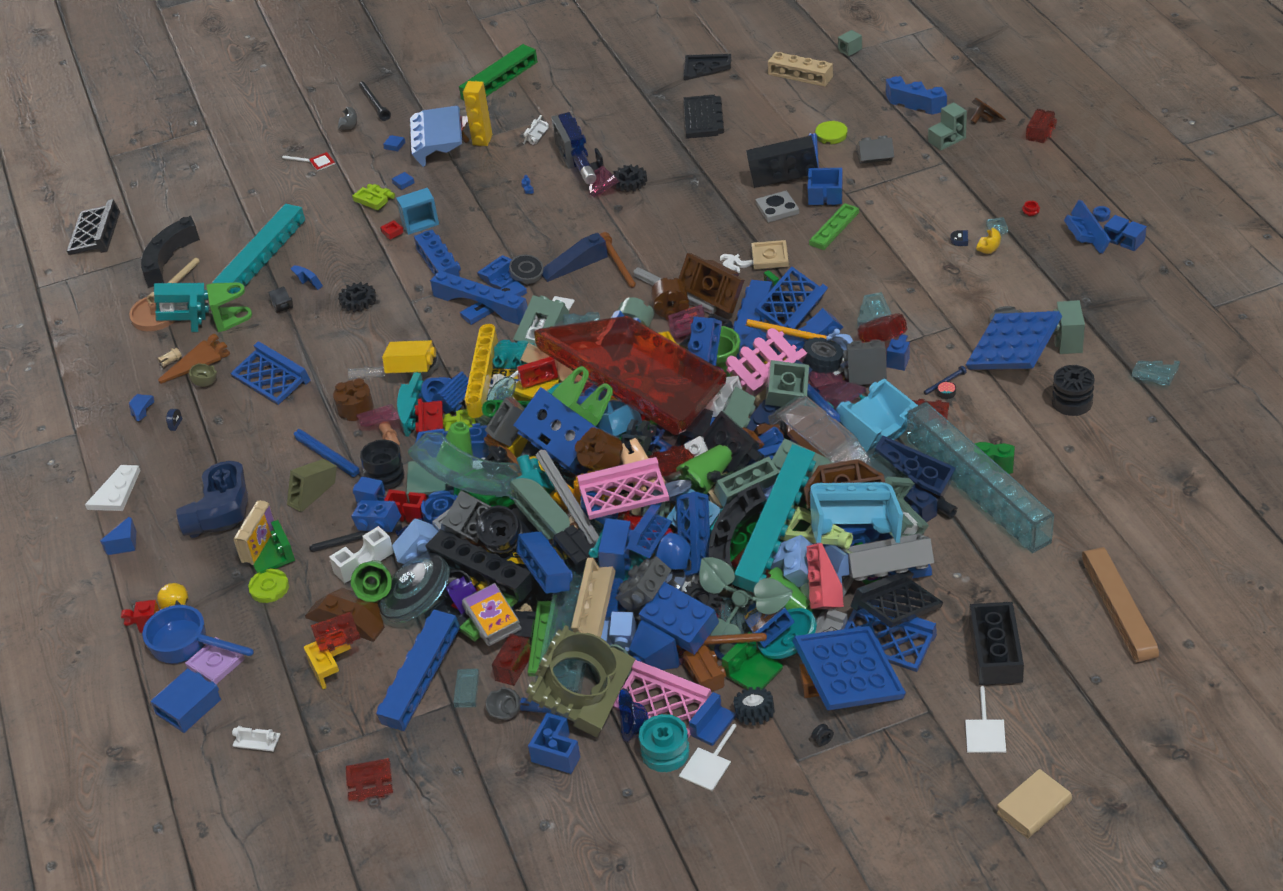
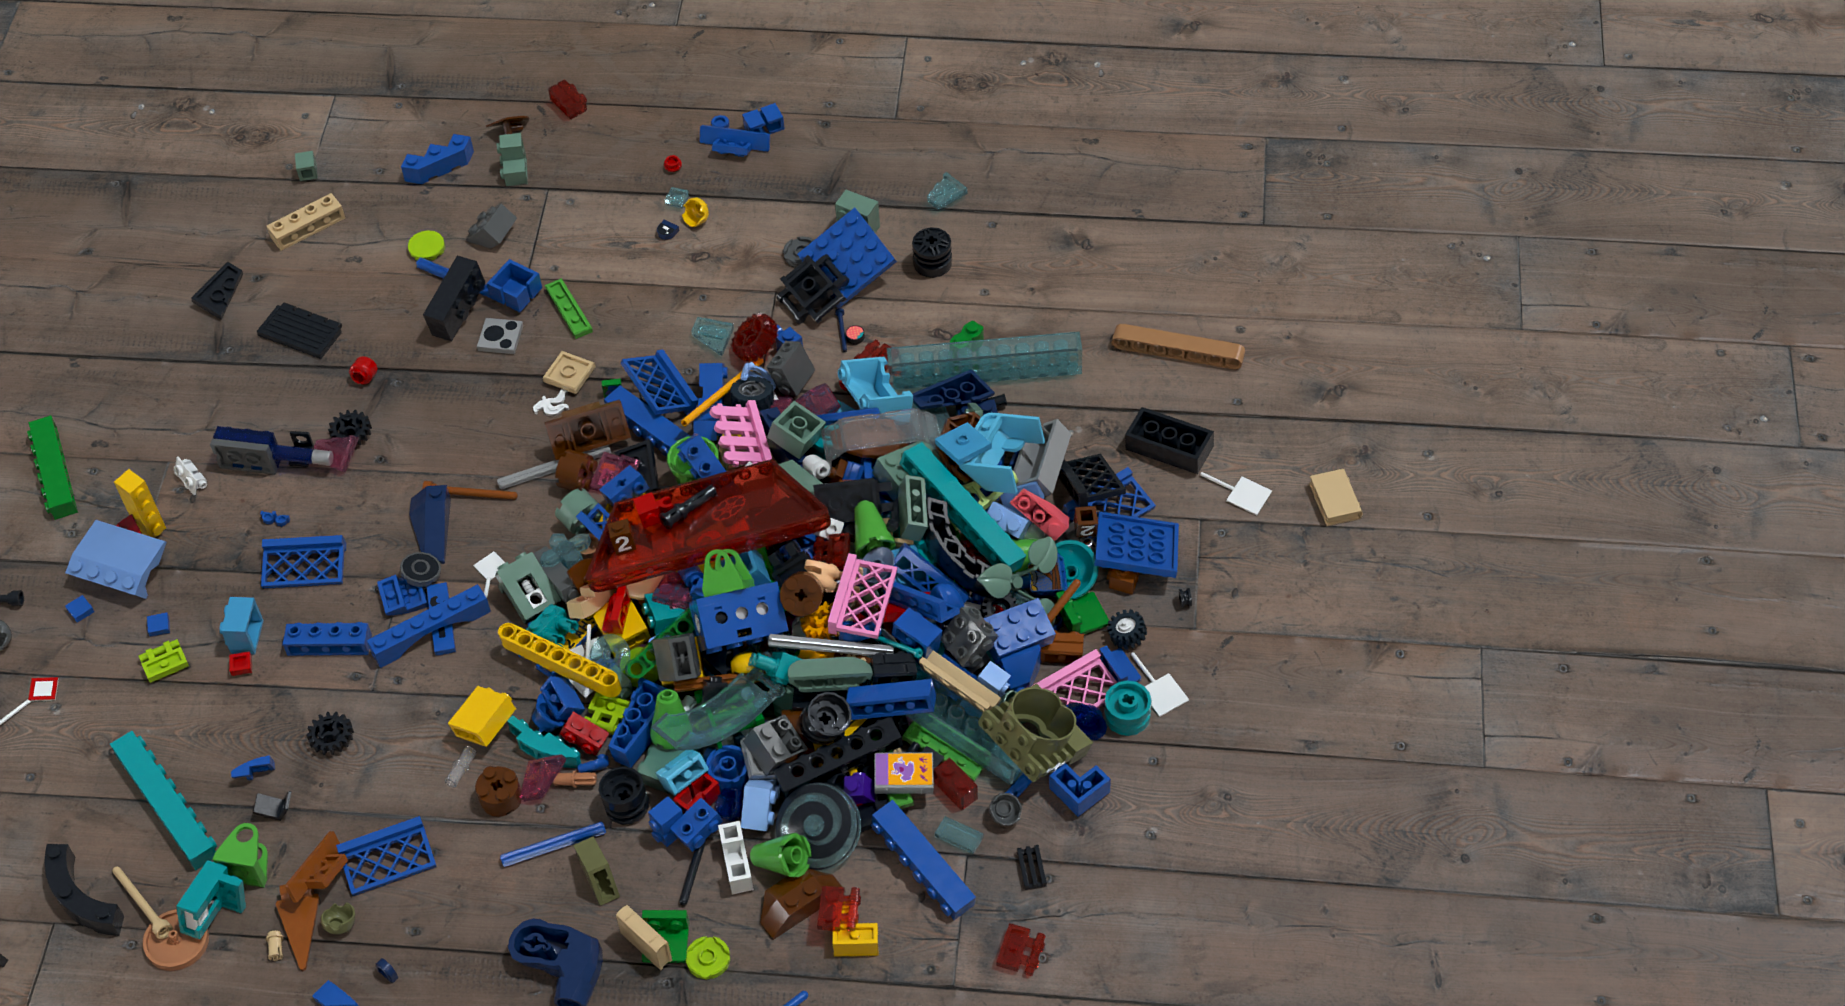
camera: 65 degrees left, 10 degrees up
(232, 341) = (318, 868): none -> dark orange bracket
(406, 439) = (600, 763): none -> blue arm
(413, 480) = (682, 771): none -> medium azure brick
(458, 750) = (1029, 851): none -> black tile
(508, 208) = (304, 546): none -> blue fence
(594, 332) = (621, 536): none -> reddish brown brick
(634, 336) = (649, 509): none -> red brick
(642, 351) = (680, 511): none -> black pin
(671, 327) = (623, 486): none -> blue brick
(686, 158) = (363, 370): none -> red head
(760, 414) = (816, 466): none -> white brick
(831, 477) = (963, 443): none -> dark azure plate
(838, 614) = (1085, 521): none -> reddish brown brick
(964, 337) = (812, 289): none -> black brick

